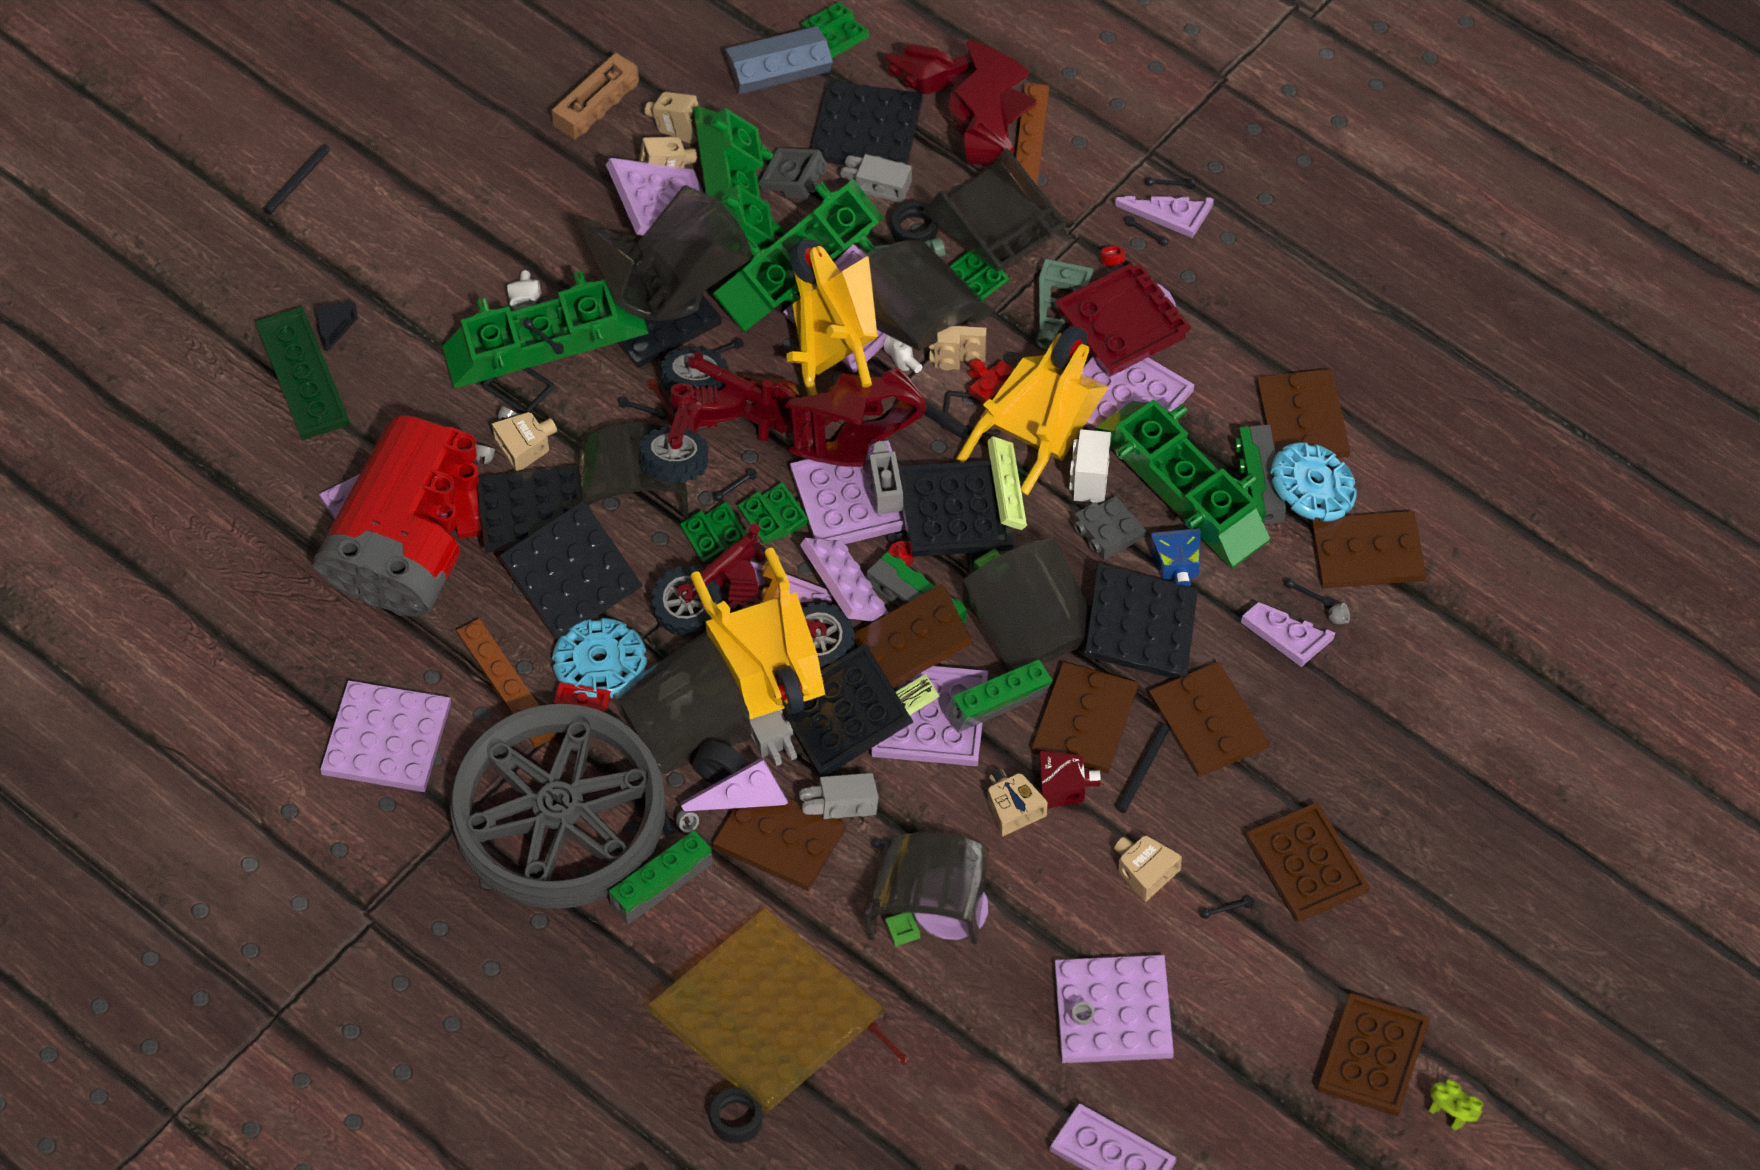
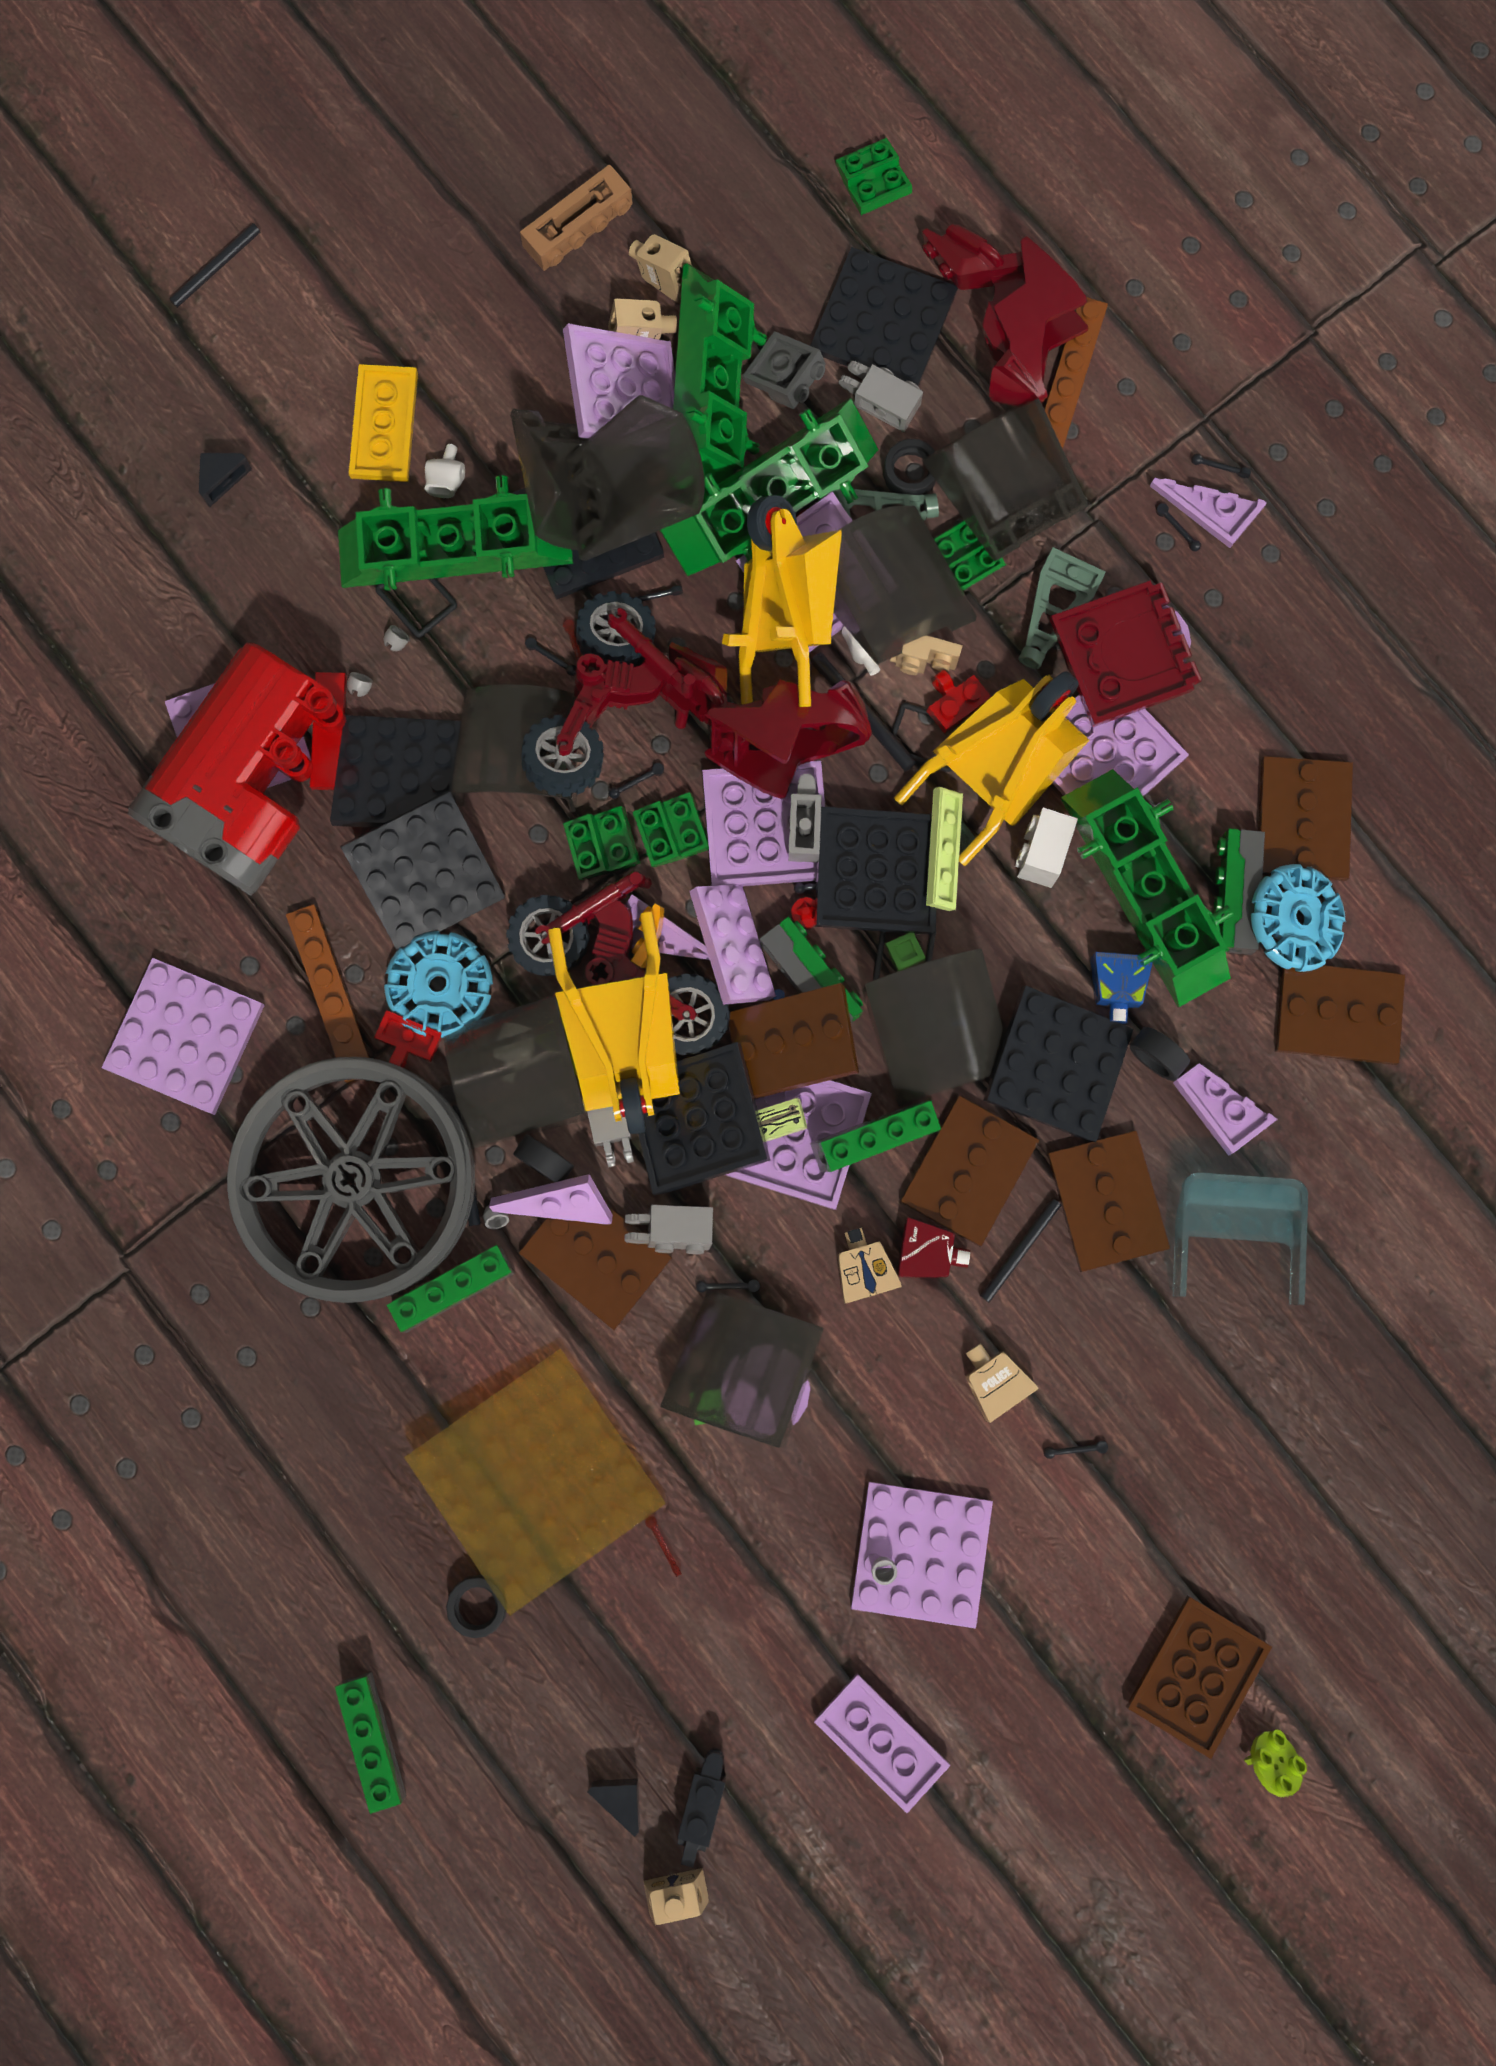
camera: 10 degrees right, 25 degrees up
(302, 373) = (173, 535): dark green plate -> none
(464, 264) = (383, 423): none -> yellow plate
(523, 439) = (406, 675): tan torso -> none
(558, 348) = (461, 573): black hinge -> none
(779, 59) = (799, 207): sand blue slope -> none
(1108, 527) = (1049, 925): dark grey plate -> none
(1112, 255) = (1131, 556): red tile -> none
(1230, 589) = (1159, 1053): none -> black tyre
(1307, 862) = (1179, 1414): reddish brown plate -> none
(1320, 700) = (1243, 1210): none -> clear light blue windscreen
(1328, 602) = (1277, 1072): black hinge -> none
(1339, 614) = (1289, 1094): light grey hinge -> none

